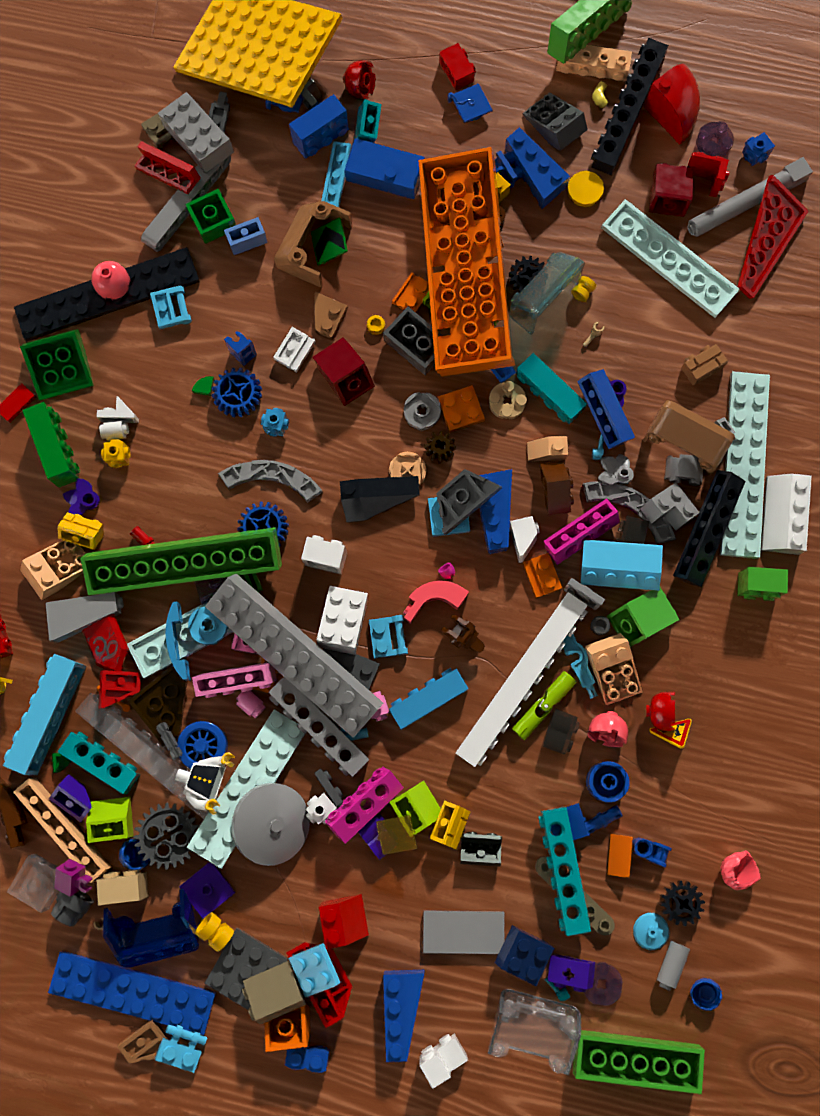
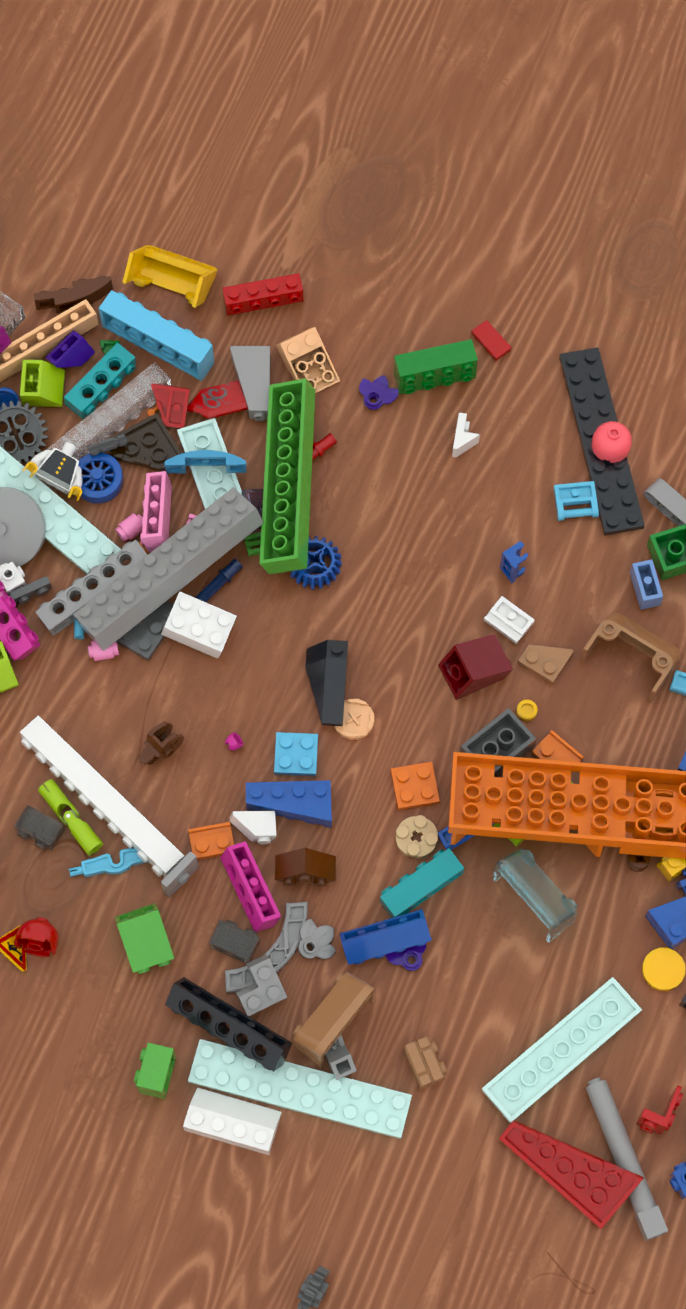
camera: 95 degrees right, 10 degrees down
(57, 364) = (527, 383): green slope -> none
(80, 530) = (340, 387): yellow brick -> none
(114, 430) = (444, 430): white brick -> none
(121, 455) = (417, 428): yellow brick -> none
(198, 630) = (211, 485): medium azure plate -> none
(204, 386) = (481, 524): green tile -> none
(244, 388) = (454, 562): blue gear -> none
(271, 471) = (374, 584): light grey tile -> none
(279, 426) = (427, 588): dark azure brick -> none
(294, 612) = (222, 578): none -> dark blue axle
(324, 554) = (270, 616): white brick -> none
(329, 241) = (630, 672): green piece -> none
(382, 639) = (175, 665): medium azure plate -> none
(422, 400) = (420, 732): light grey plate -> none
(428, 699) = (100, 700): dark azure brick -> none
(435, 590) = (211, 735): coral arch -> none
(440, 440) = (366, 759): dark brown gear -> none
(463, 497) = (307, 763): dark grey wing -> none
(529, 269) = (569, 881): black gear -> none
(548, 449) = (351, 870): light nougat slope -> none
(583, 289) = (538, 946): yellow wheel -> none
(594, 332) = (481, 946): tan hand -> none
(598, 453) = (339, 925): medium azure hand -> none
(600, 625) = (145, 893): dark grey tile -> none
(608, 728) = (31, 877): coral cylinder -> none
(614, 668) = (95, 896): light nougat slope -> none
(621, 565) = (203, 919): medium azure slope -> none
(671, 190) = (648, 1065): dark red slope -> none
(684, 468) = (302, 1009): light grey cylinder -> none

